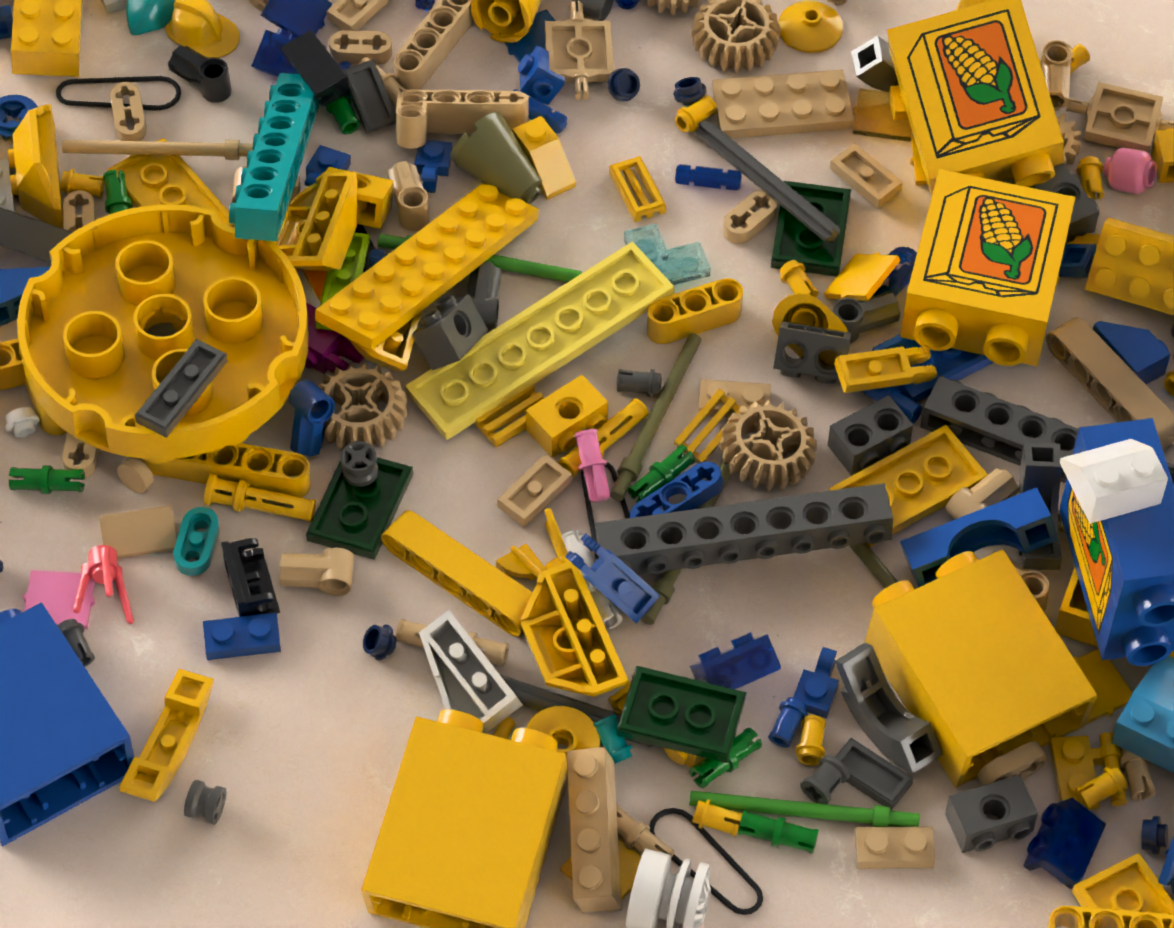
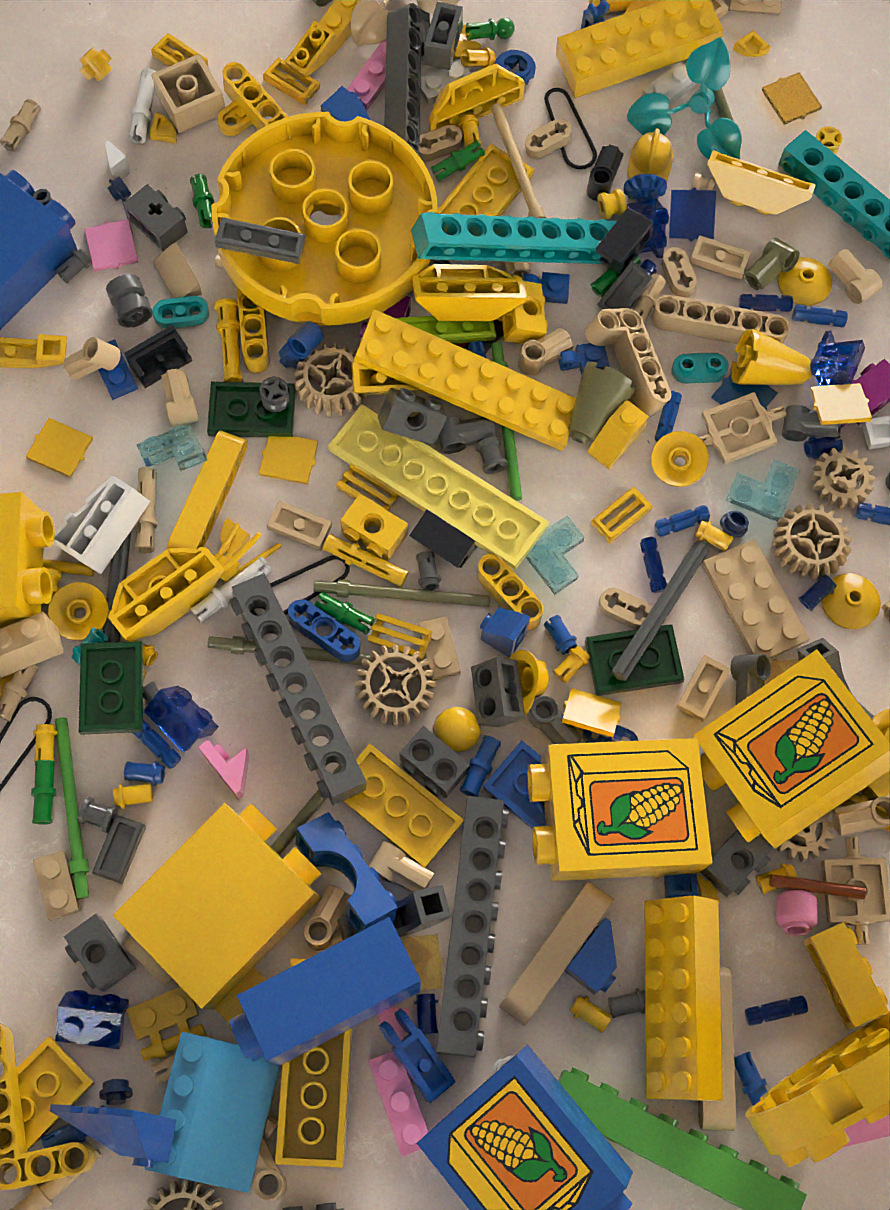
camera: 70 degrees right, 15 degrees up
(49, 534) = (155, 217): none -> dark grey brick
(103, 569) = (138, 260): coral plant -> none
(159, 588) = (129, 300): none -> dark grey wheel
(227, 645) = (91, 357): none -> tan piece
(244, 37) = (645, 187): none -> blue gear
(247, 77) = (611, 203): none -> yellow wheel
(324, 722) = (59, 447): none -> yellow piece
(379, 641) = (130, 460): dark blue plate -> none
(380, 581) = (176, 443): none -> clear light blue plate
(439, 484) = (289, 458): none -> yellow piece
(488, 59) = (701, 369): none -> teal plate
(520, 282) = (491, 455): none -> dark grey bush
(536, 77) = (691, 405): blue bracket -> none
(592, 465) = (328, 558): bright pink axle -> none
(598, 100) = (680, 445): none -> yellow dish
(607, 351) = (443, 539): none -> black hinge
(615, 580) = (215, 600): blue hinge -> none
(623, 84) = (720, 472): dark blue plate -> none
(666, 52) = (768, 497): none -> clear light blue plate
(666, 136) = (681, 521): none -> blue axle
(711, 769) = (110, 742): green pin -> none
(744, 321) = (504, 630): none -> blue slope
(762, 700) = (158, 746): none -> blue axle
(763, 281) = (560, 634): none -> blue pin
(791, 40) = (817, 592): none -> clear blue pin
(817, 630) = (232, 772): none -> bright pink slope
(817, 687) = (182, 786): blue plate -> none
(832, 405) = (457, 728): none -> yellow hair
(867, 128) = (749, 674): none -> dark grey piece
(883, 368) = (491, 751): yellow hinge -> none
(886, 722) = (176, 827): dark grey arch -> none
(1101, 787) = (138, 1036): yellow pin -> none
(1113, 141) = (817, 886): none -> copper bar
(1115, 479) = (335, 956): white slope -> none

